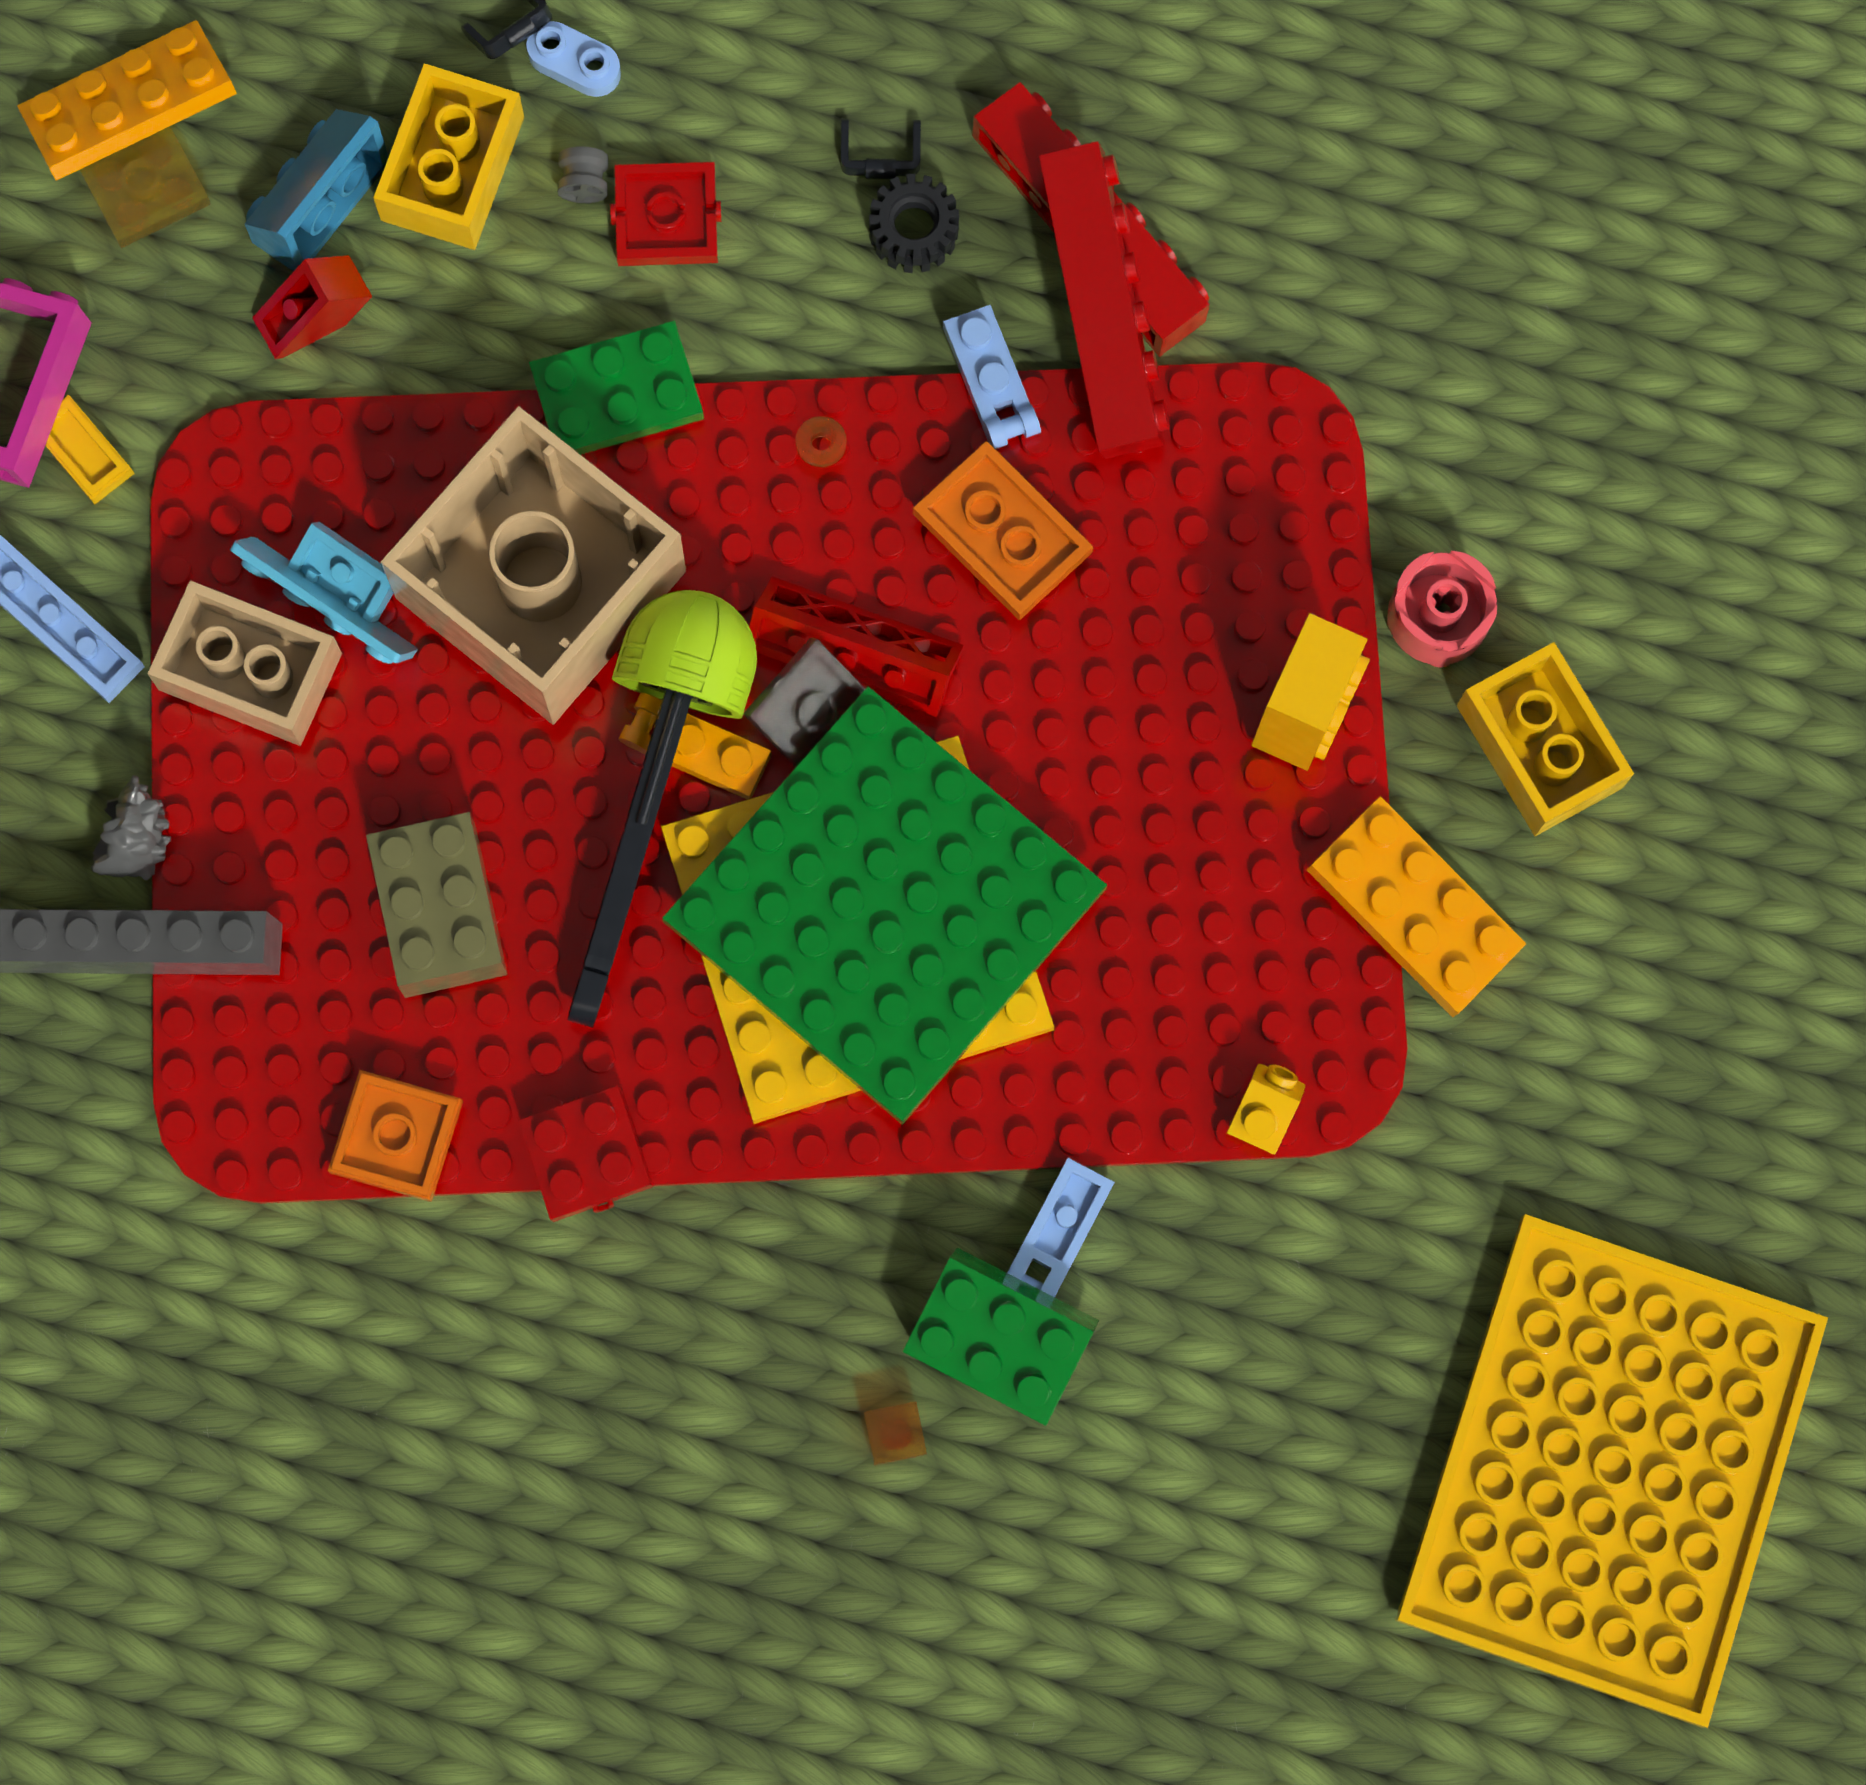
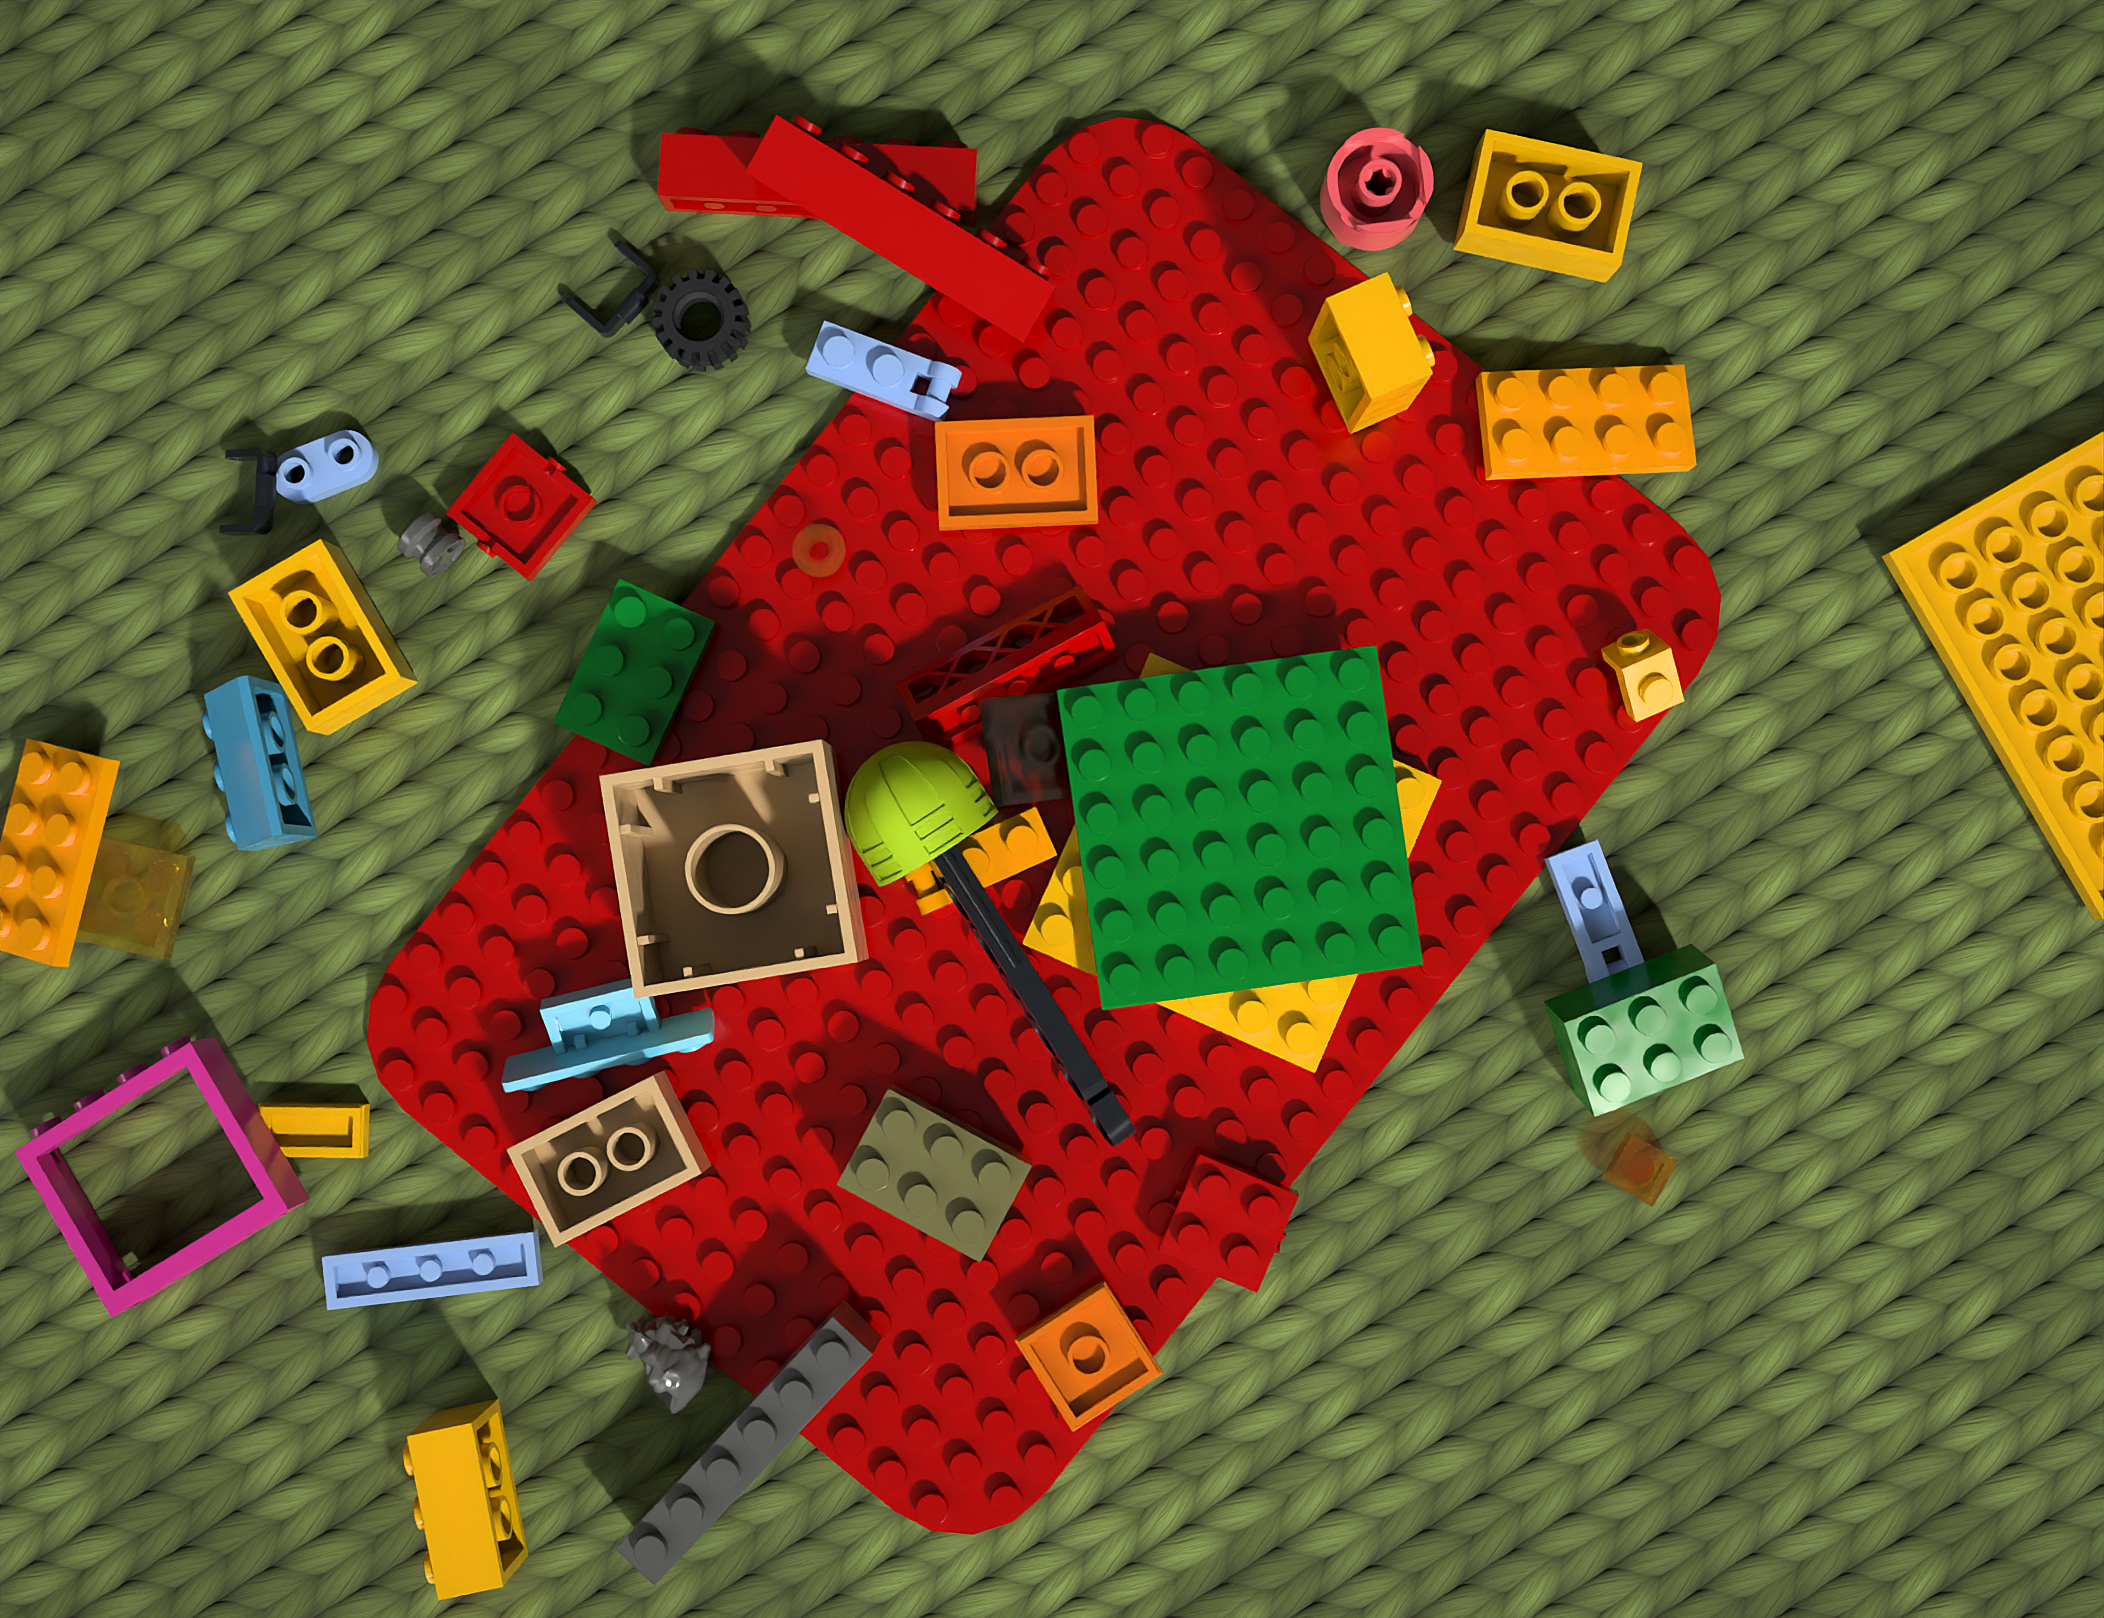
camera: 40 degrees left, 10 degrees up
(311, 304) = (352, 850): red slope -> none

